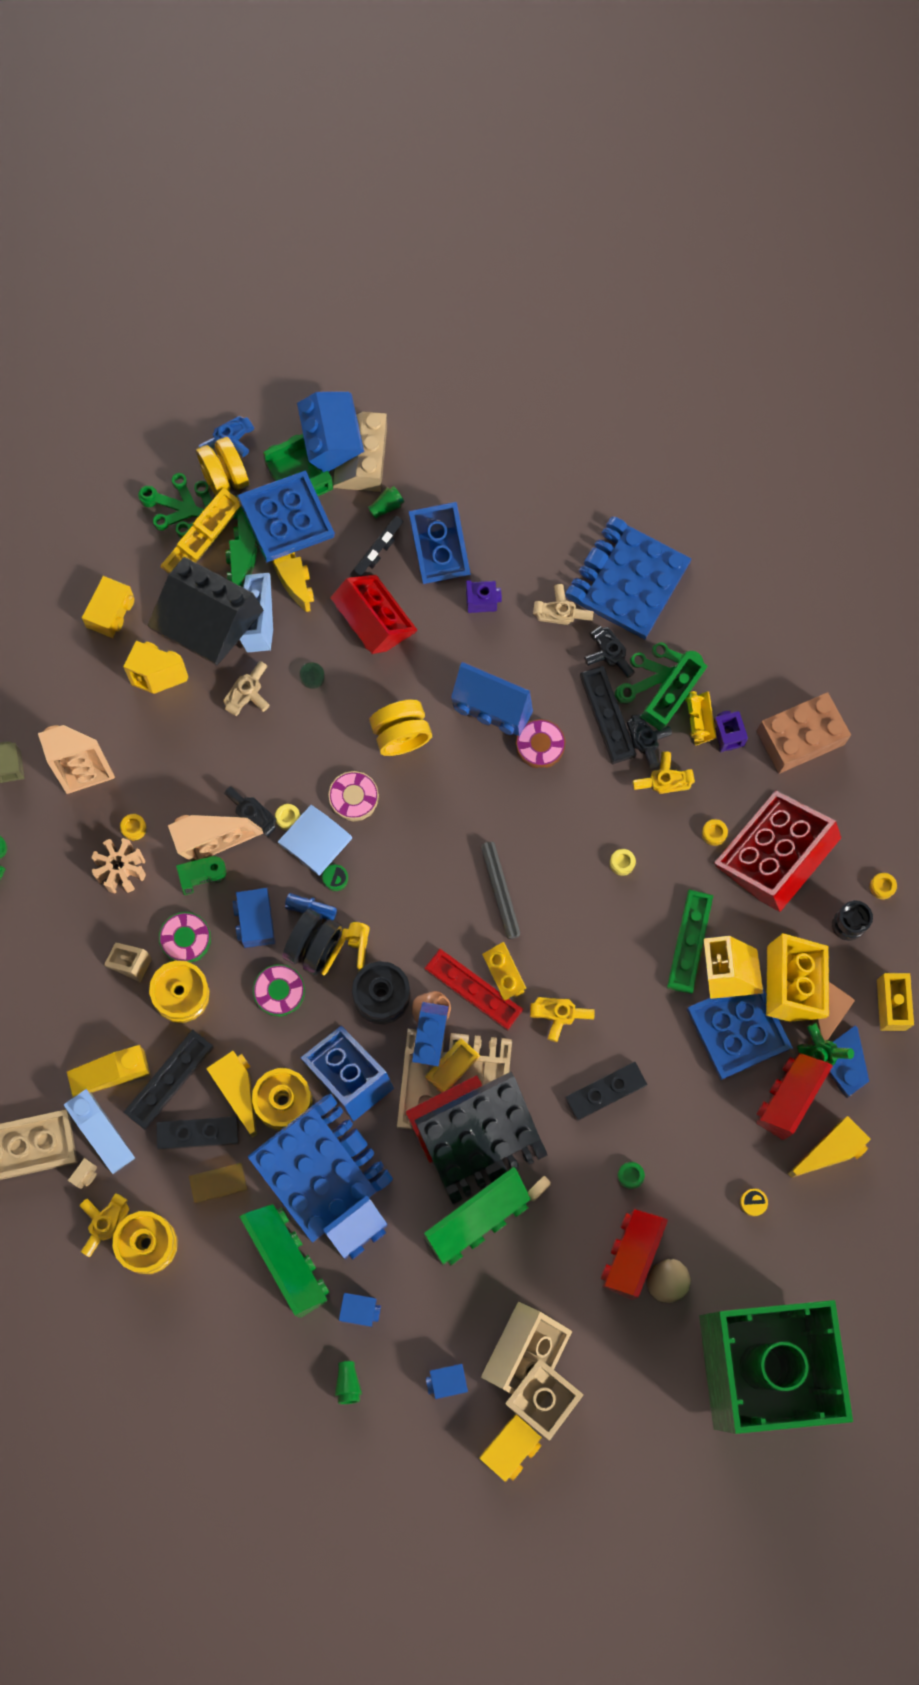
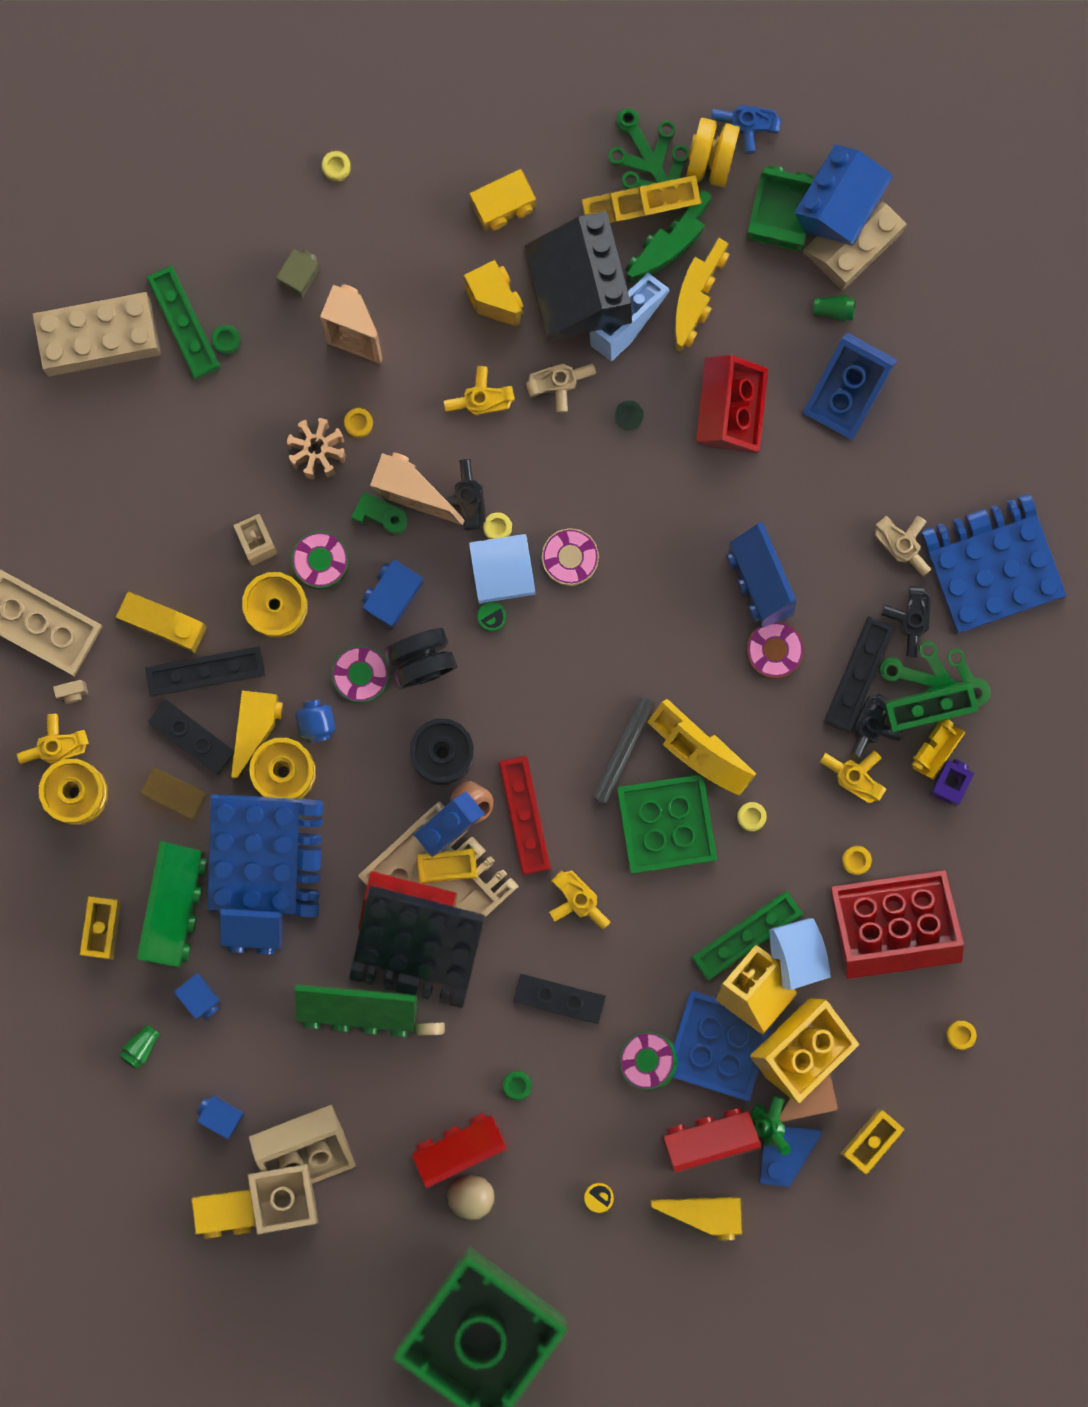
camera: 40 degrees right, 10 degrees up
(99, 1131) = (113, 665): light blue slope -> none
(204, 742) = (482, 399): none -> yellow piece
(247, 1322) = (101, 928): none -> yellow brick
(275, 1047) = (315, 721): none -> blue head
(286, 516) = (728, 249): blue plate -> none
(301, 904) = (445, 620): blue axle -> none
(348, 1073) = (356, 794): blue slope -> none
(357, 938) = (464, 686): yellow plant -> none
(384, 541) = (800, 343): black plate -> none
(400, 727) = (660, 532): yellow wheel -> none
(482, 603) = (833, 472): dark purple brick -> none
(504, 971) = (562, 823): yellow hinge -> none
(551, 846) = (703, 754): none -> yellow slope
(572, 913) = (666, 824): none -> green plate
(703, 1079) = (648, 1061): none -> tile
(736, 918) = (800, 953): none -> light blue slope
(803, 732) = (1016, 841): nougat brick -> none
(856, 916) = (901, 1041): black wheel -> none

